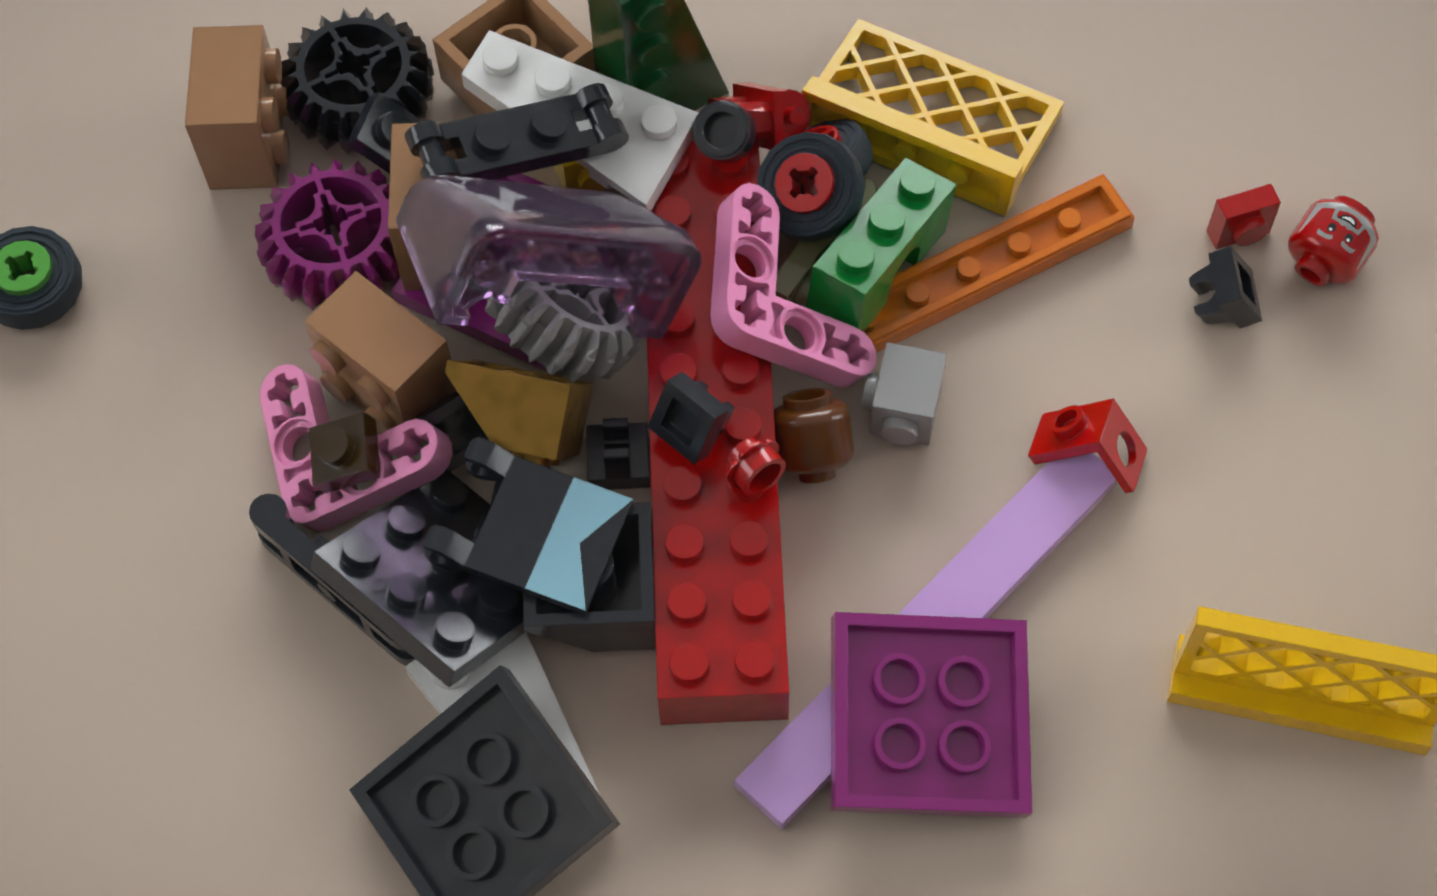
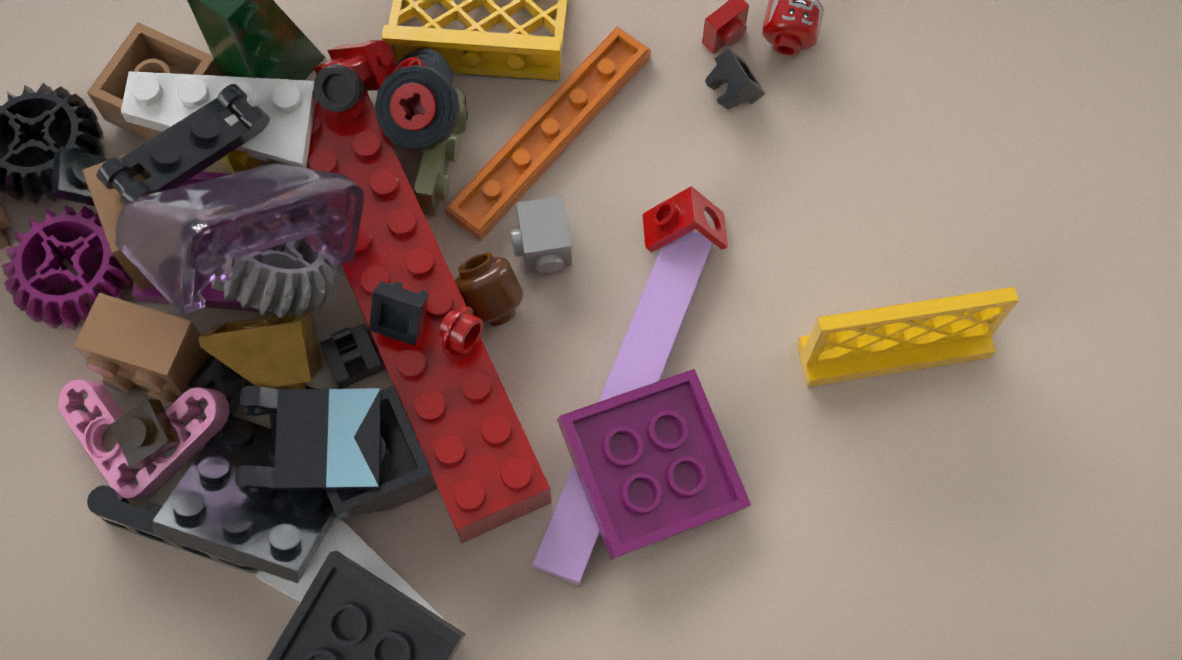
camera: 25 degrees left, 5 degrees up
(766, 311) = (421, 211): bright pink beam -> none
(893, 226) = (477, 145): green arch -> none

